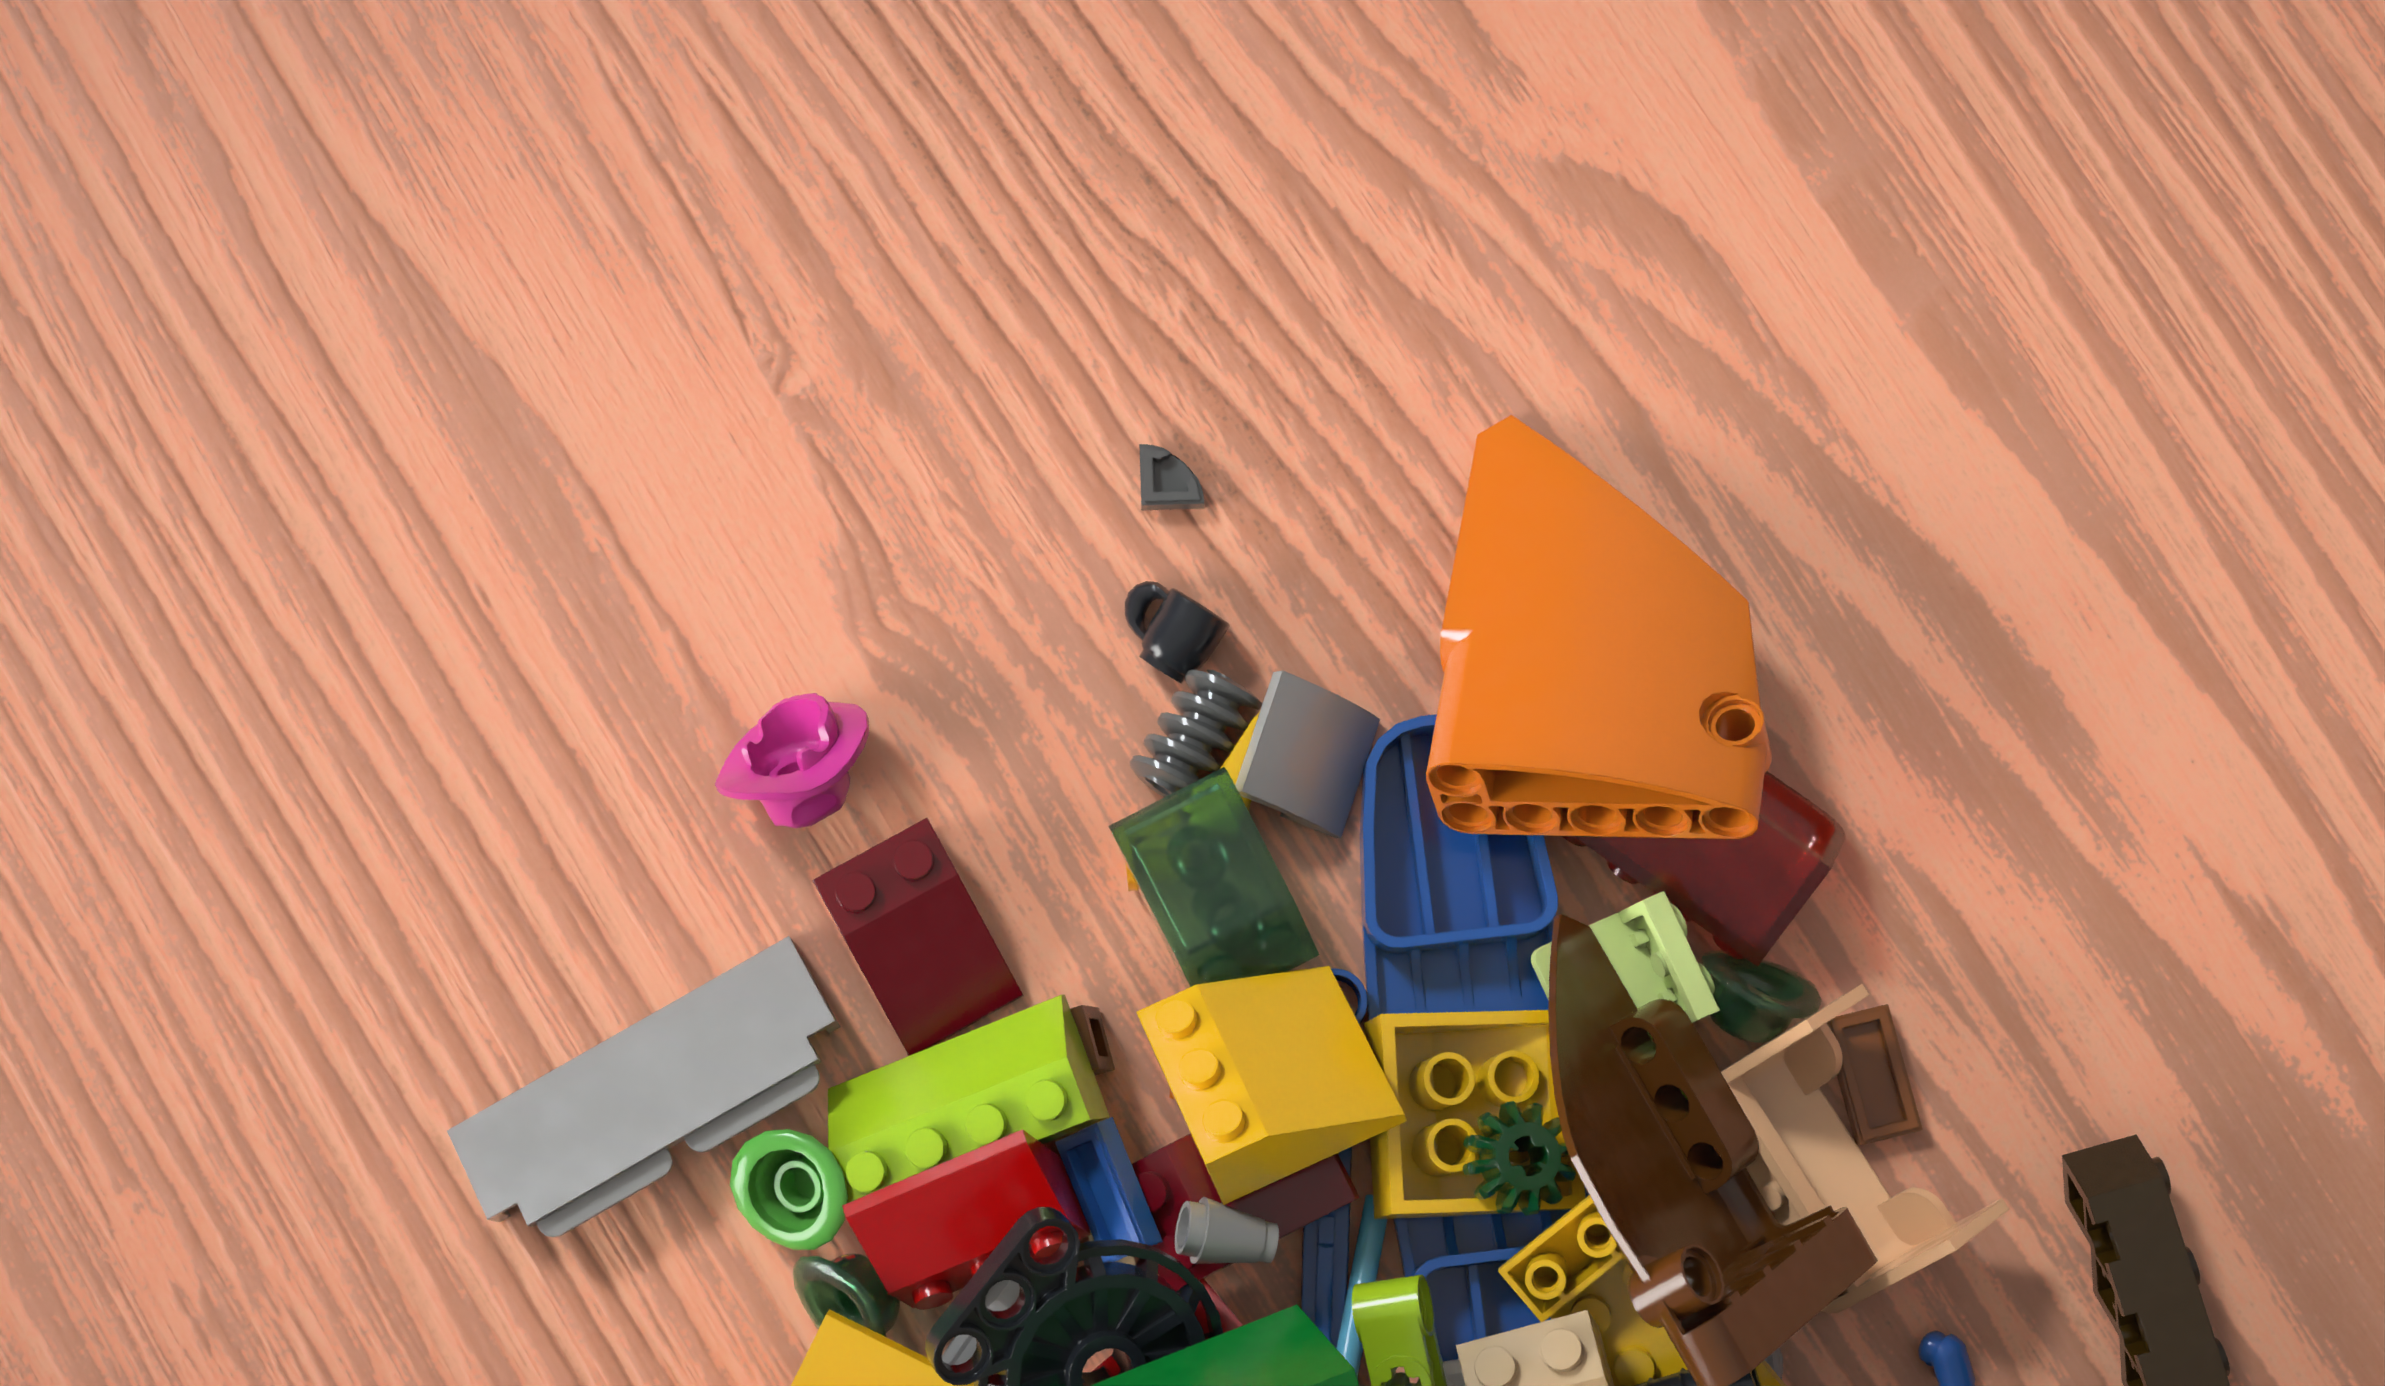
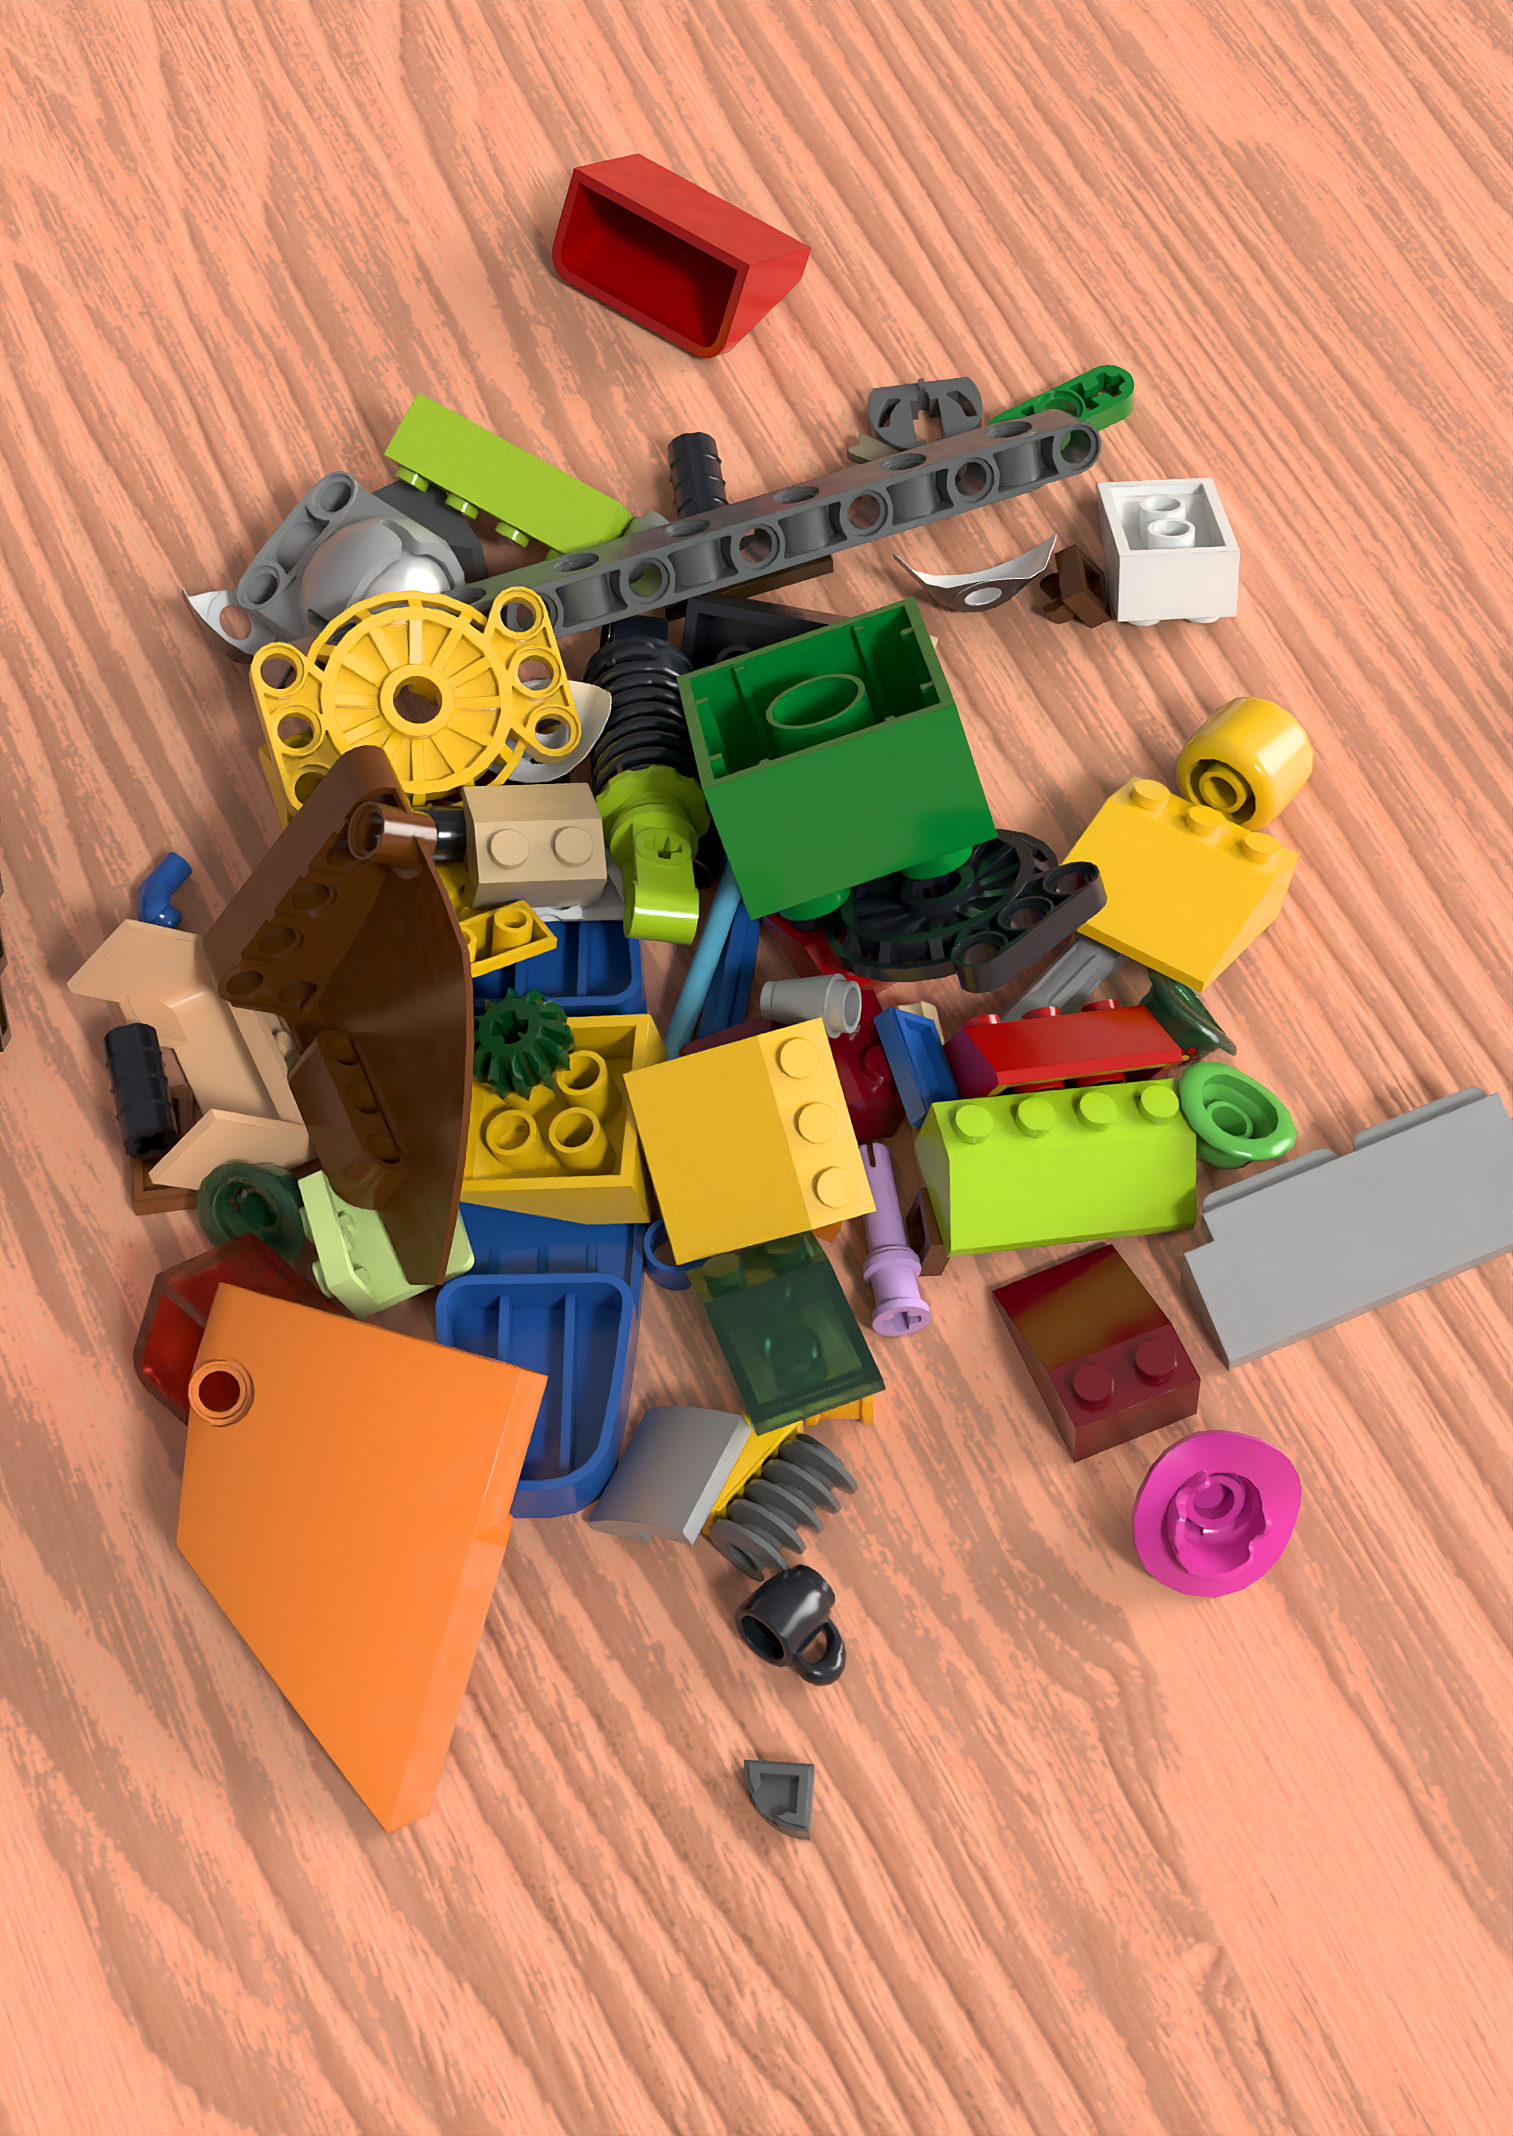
camera: 165 degrees left, 20 degrees down
(1118, 1001) = (890, 1265): none -> lavender pin
(1906, 1116) = (140, 1091): none -> black axle

